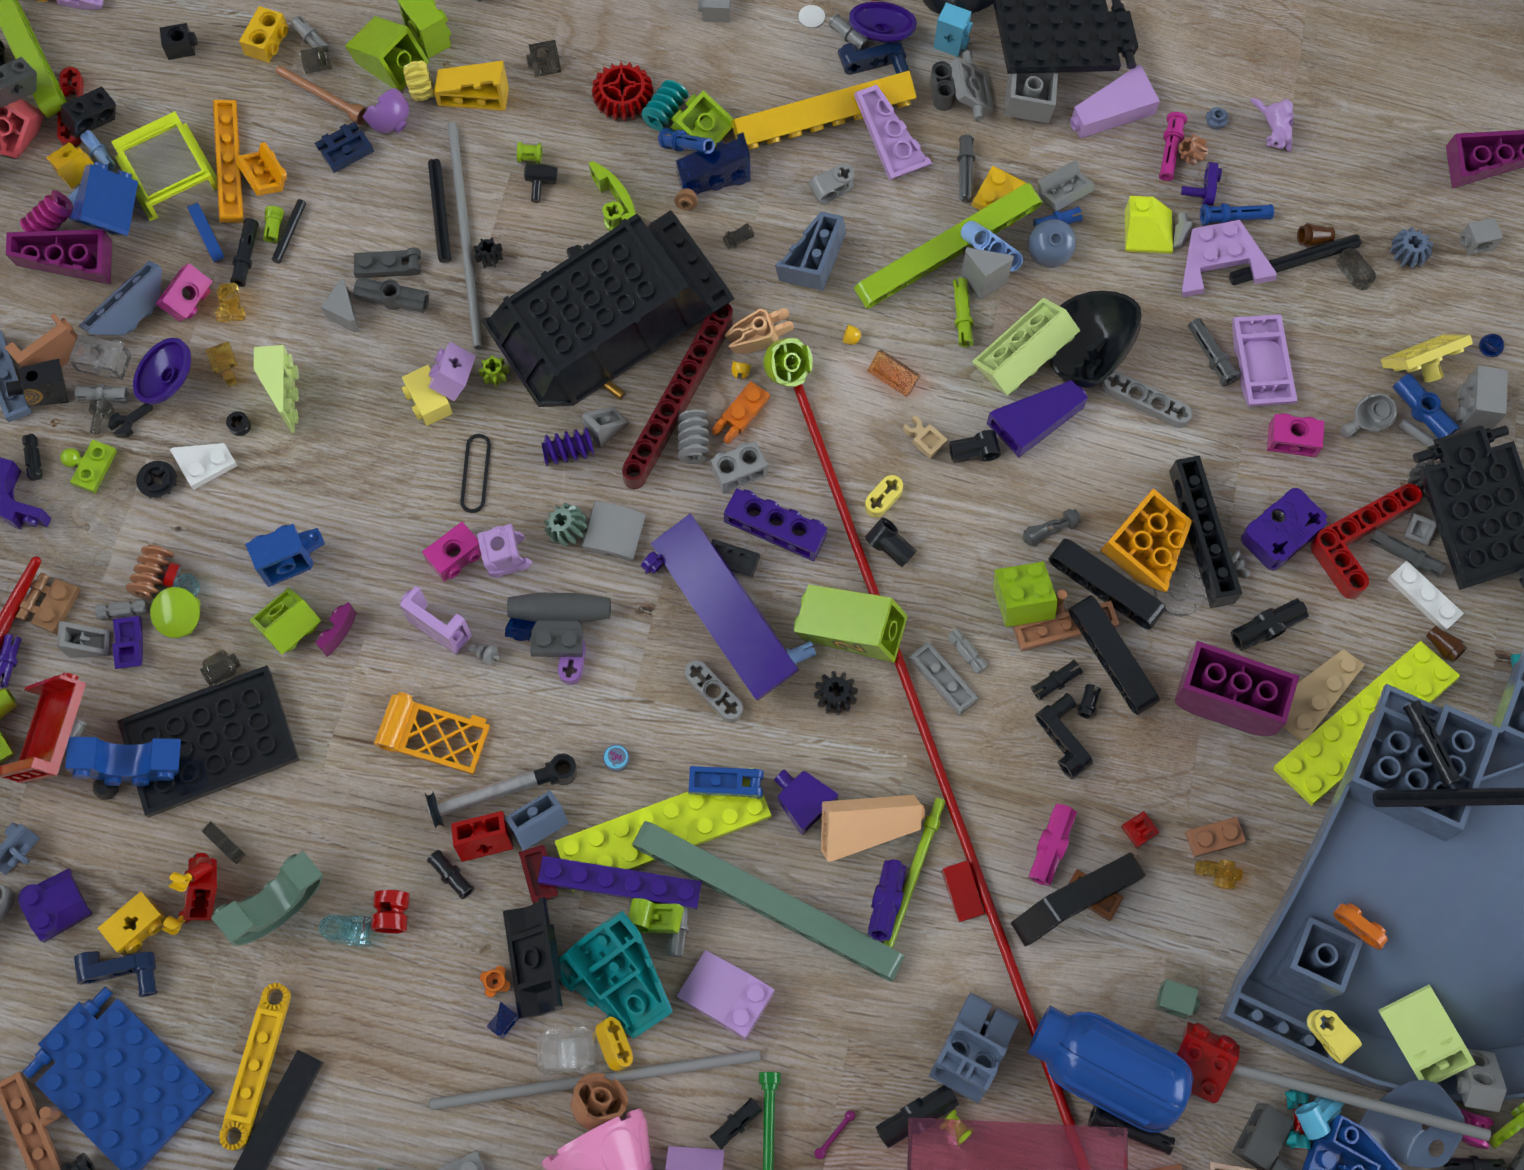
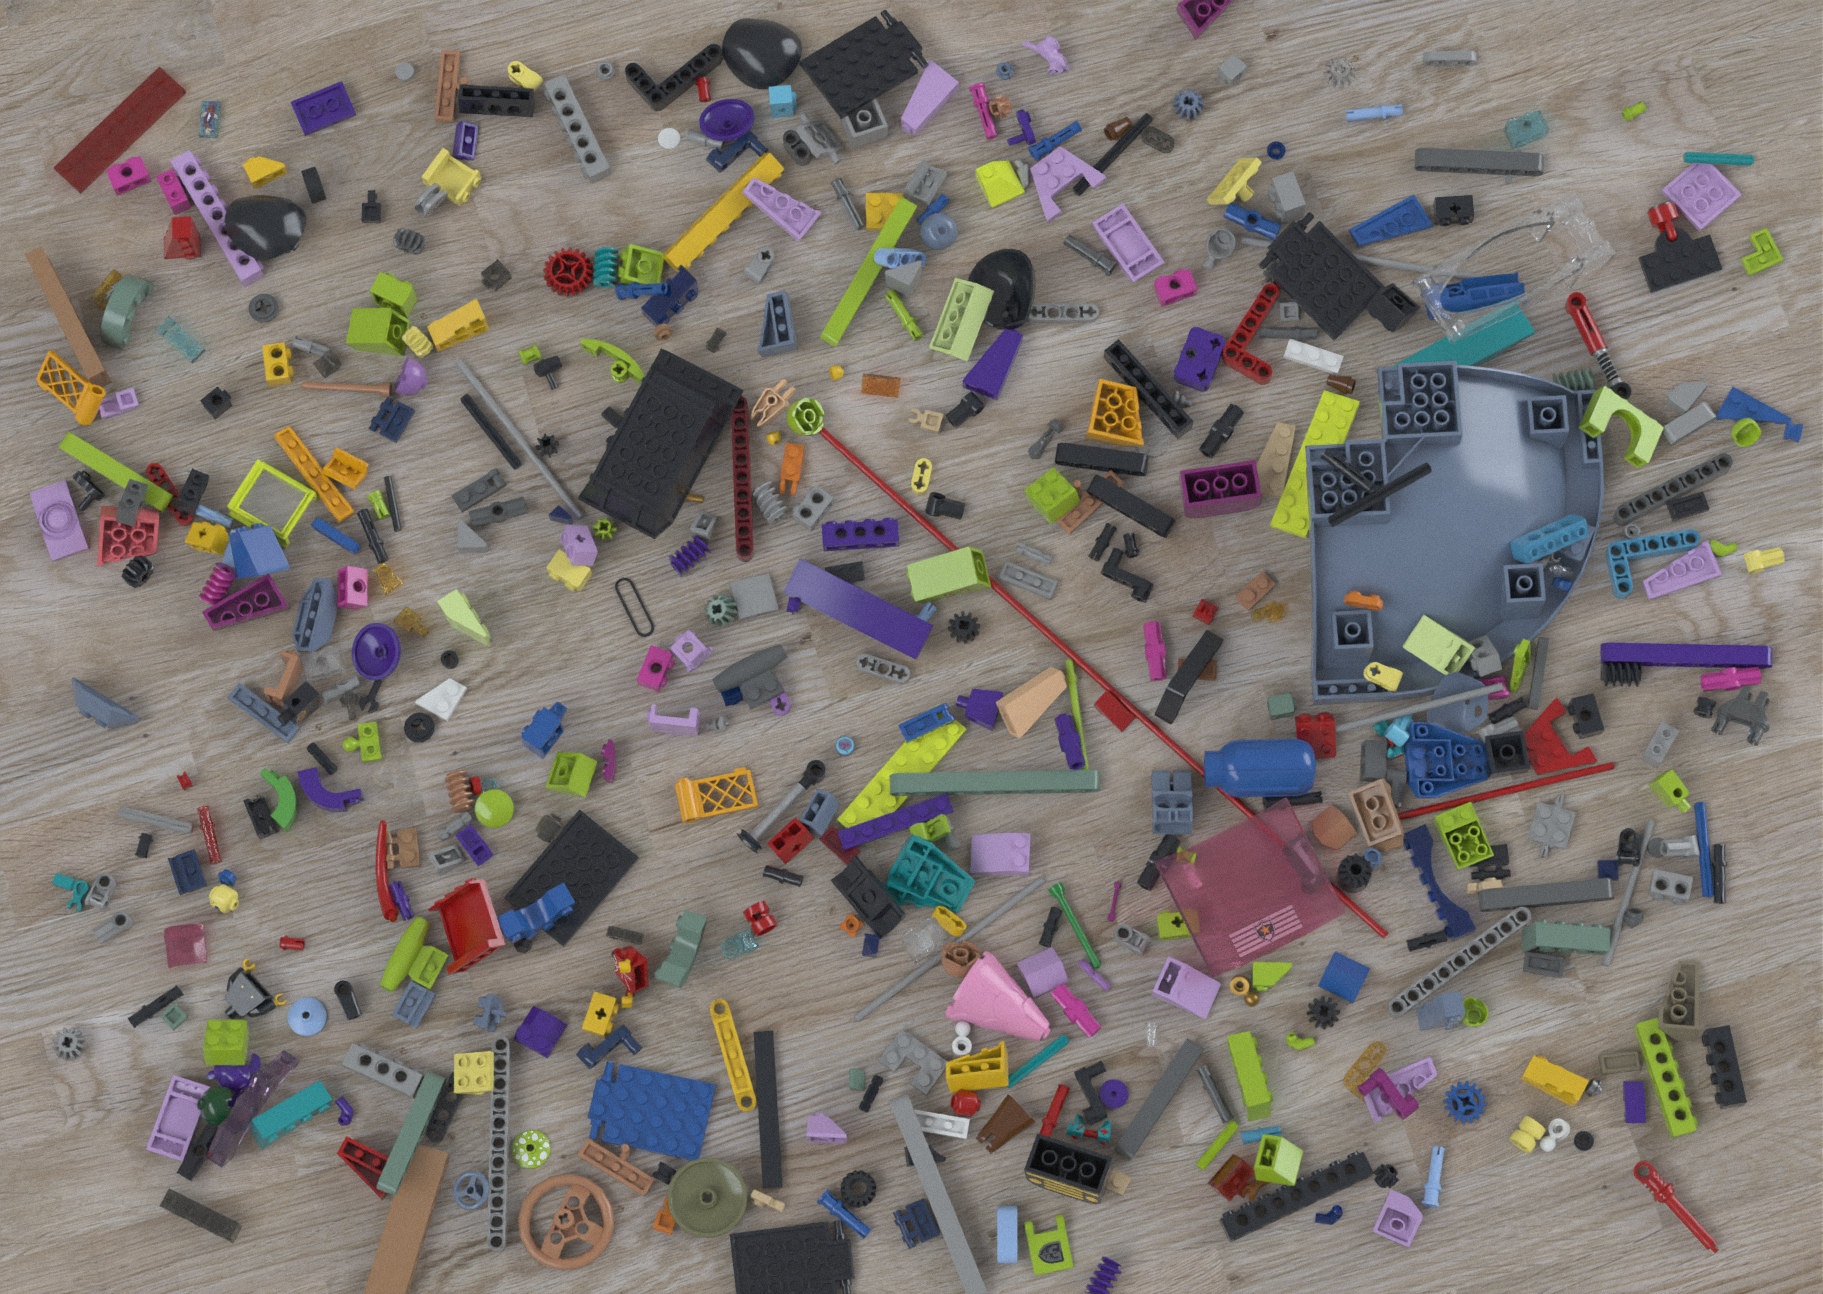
camera: 25 degrees left, 5 degrees up
(453, 330) = (561, 516): none -> clear blue slope

